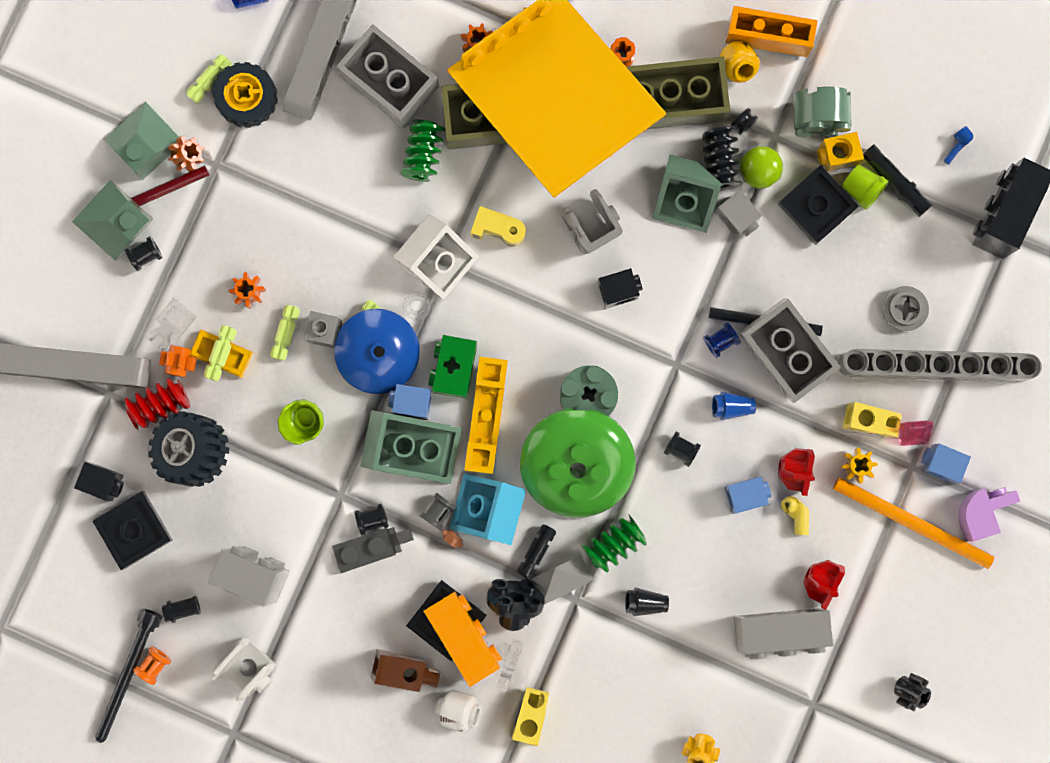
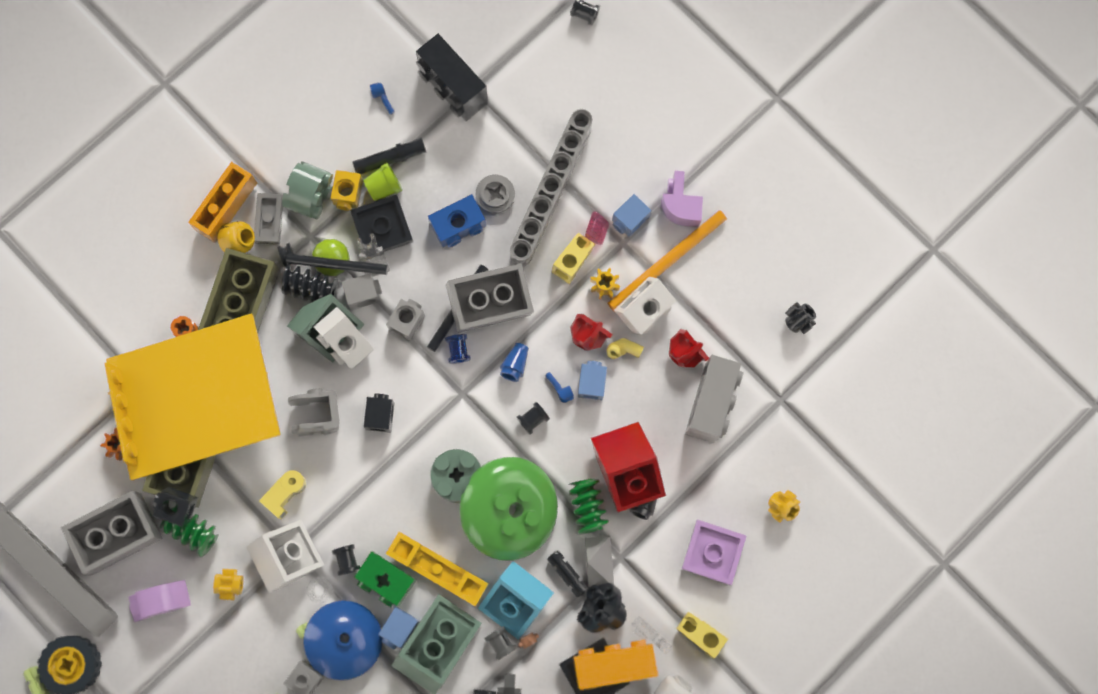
camera: 75 degrees left, 5 degrees down
(341, 152) = (159, 600): none -> lavender brick
(385, 213) = (228, 584): none -> yellow gear
(447, 133) = (185, 502): none -> black brick
(457, 319) = (346, 559): none -> black bush
(621, 696) = (714, 552): none -> lavender plate
(673, 570) = (628, 466): none -> red slope
(688, 204) = (333, 329): none -> white brick
(718, 278) = (405, 330): none -> light grey brick
(721, 471) = (565, 394): none -> blue hand
(756, 177) = (337, 264): none -> black bar
(774, 85) = (268, 218): none -> light grey plate
(779, 210) = (371, 253): none -> clear plate
(843, 505) = (632, 311): none -> white brick
(874, 283) = (464, 209): none -> blue brick

